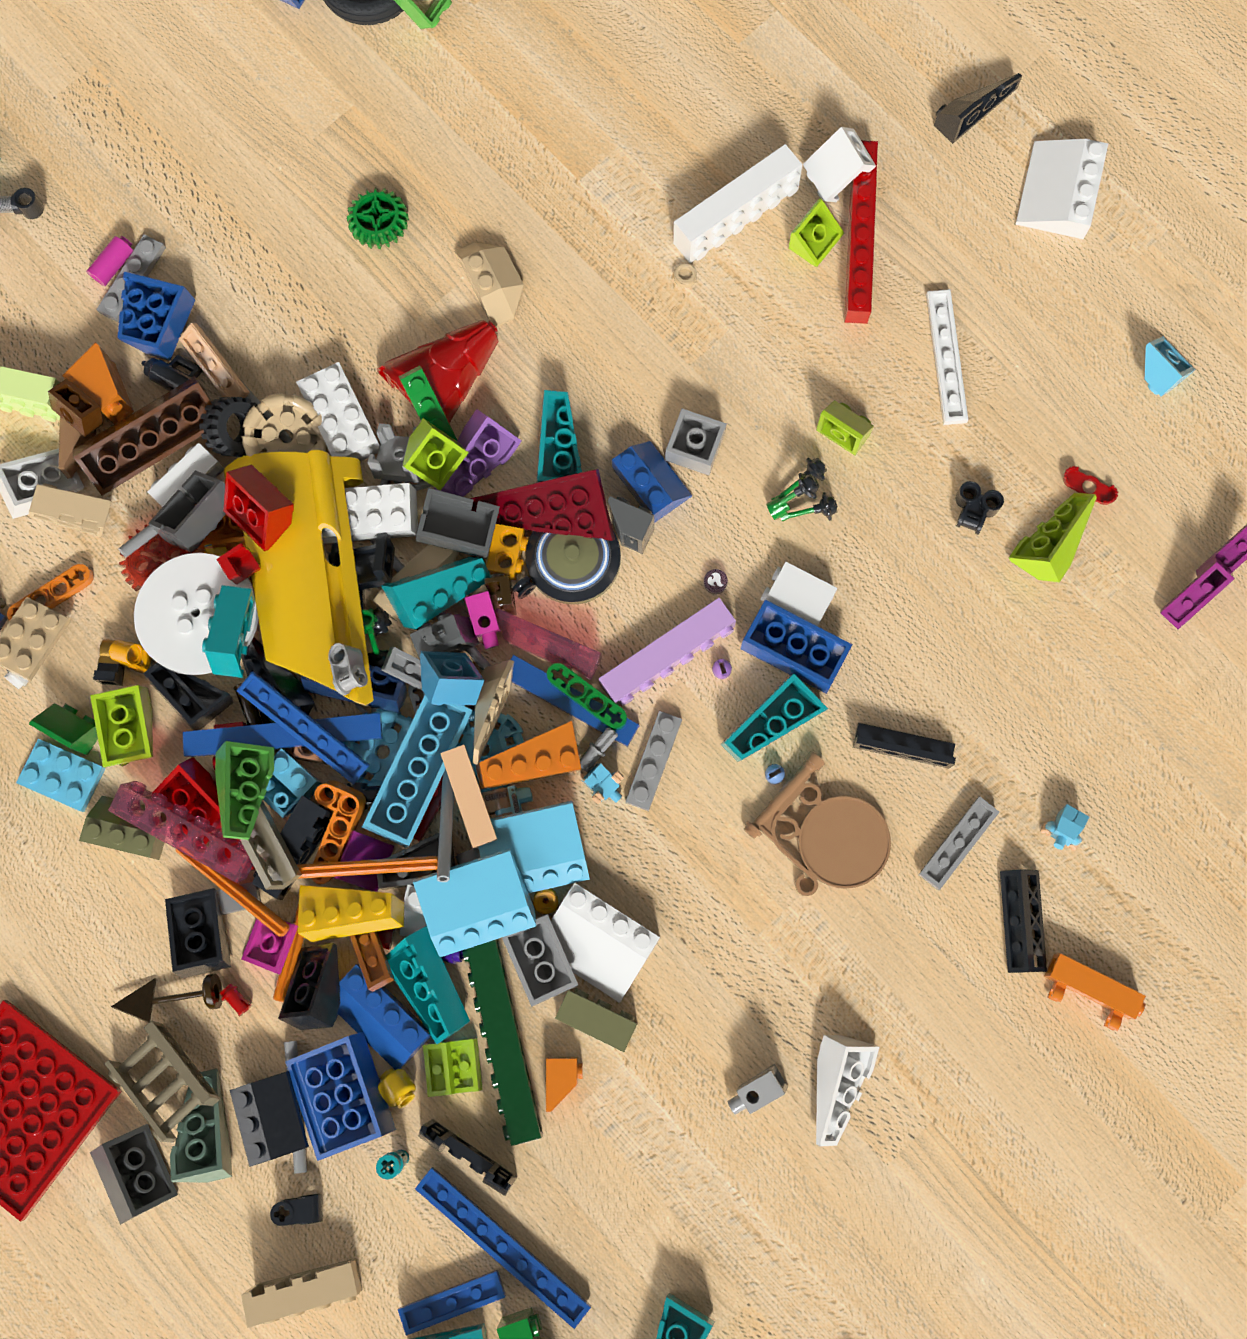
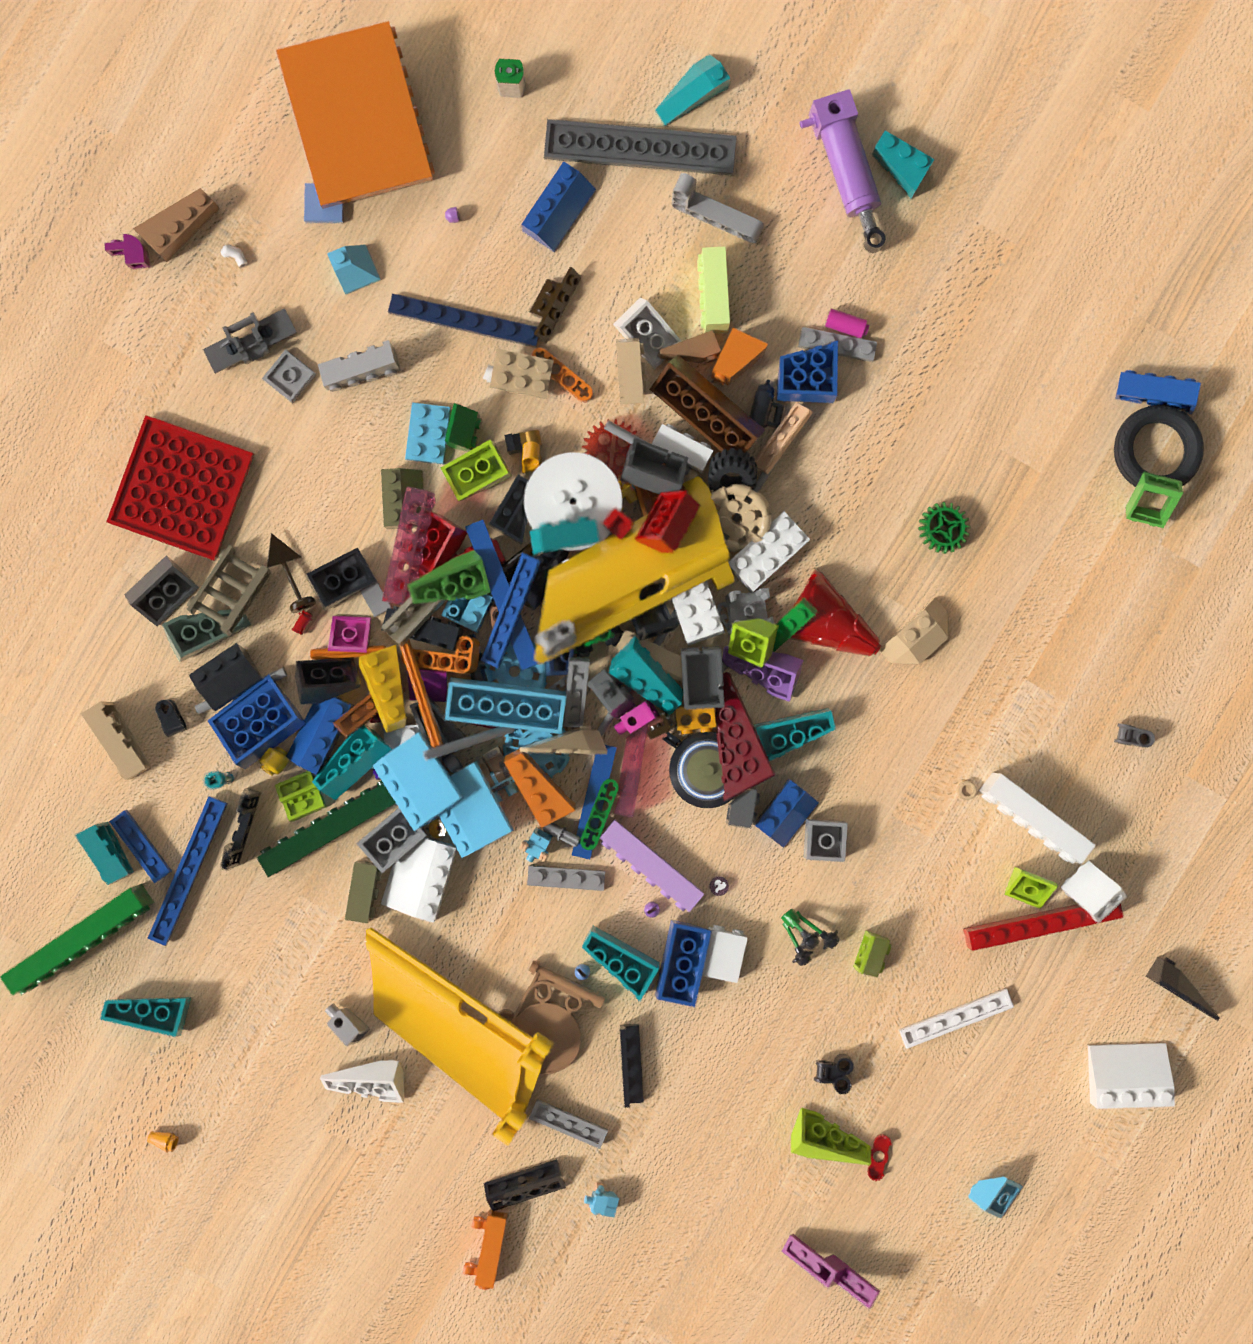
camera: 70 degrees right, 10 degrees up
(75, 407) = (710, 347): reddish brown brick -> none
(242, 897) = (373, 609): orange axle -> none
(450, 678) = (578, 711): dark azure slope -> none
(468, 796) = (493, 753): light nougat tile -> none
(561, 1079) = (314, 878): orange slope -> none
(675, 85) = (1130, 736): none -> dark grey piece
(771, 982) = (488, 1059): none -> yellow panel

